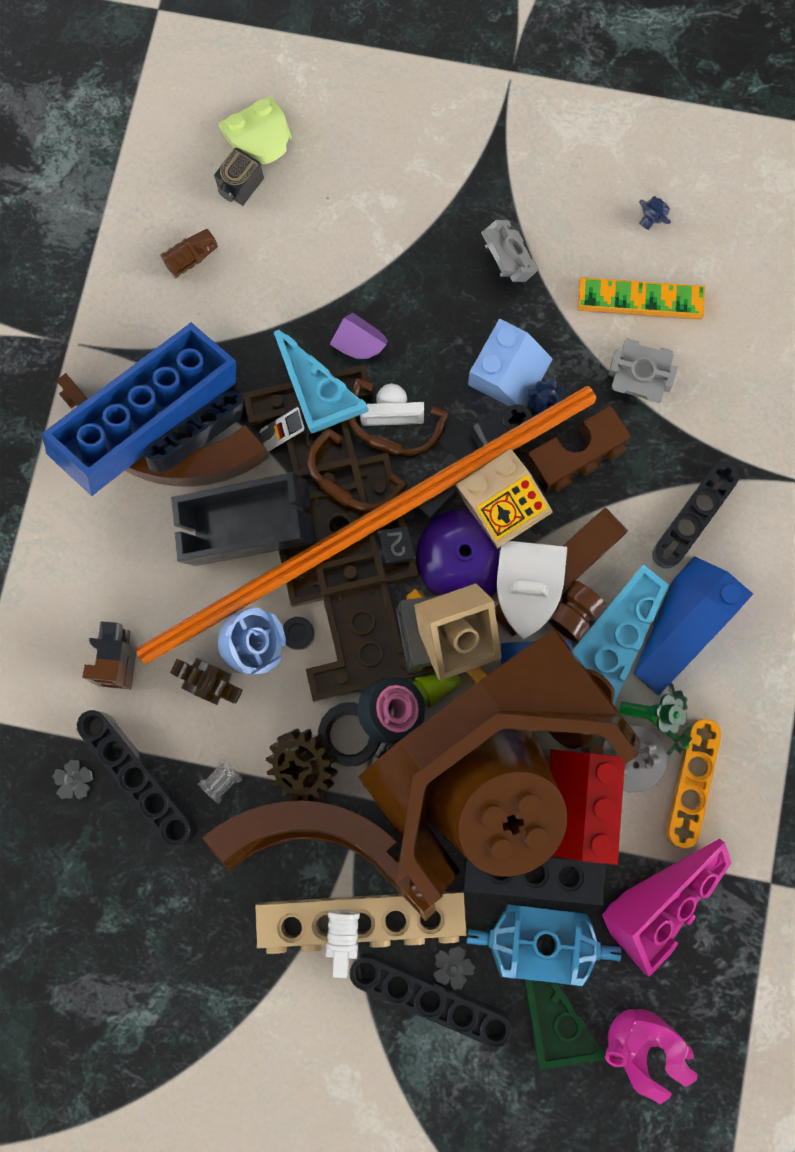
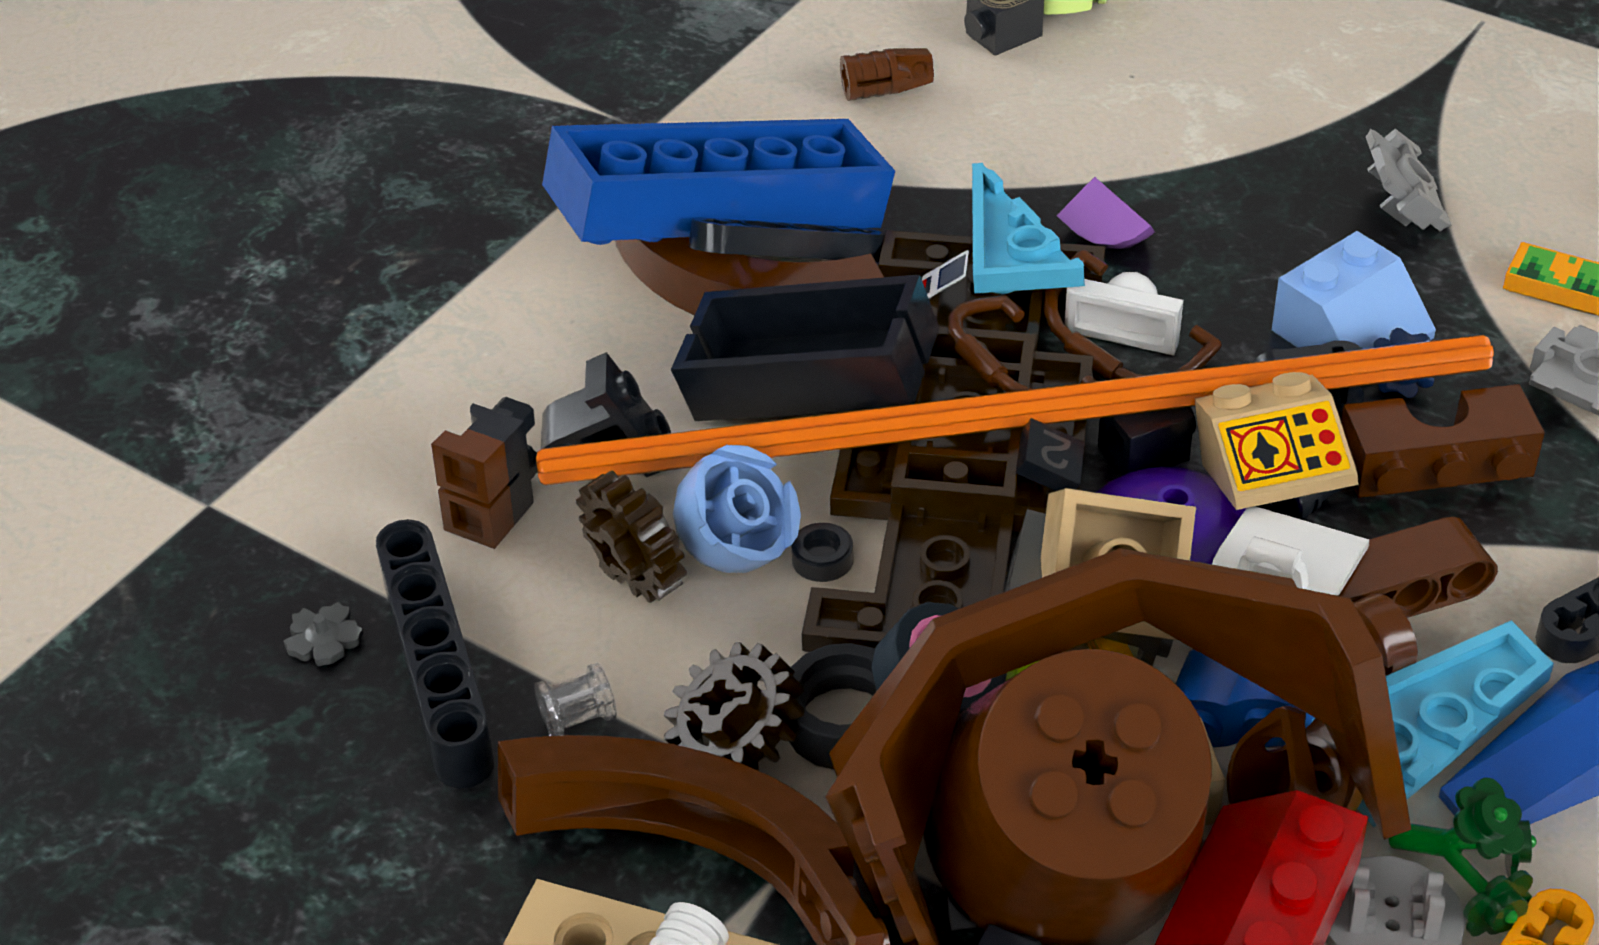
camera: 20 degrees right, 35 degrees down
(155, 602) = (602, 411): none -> black pin

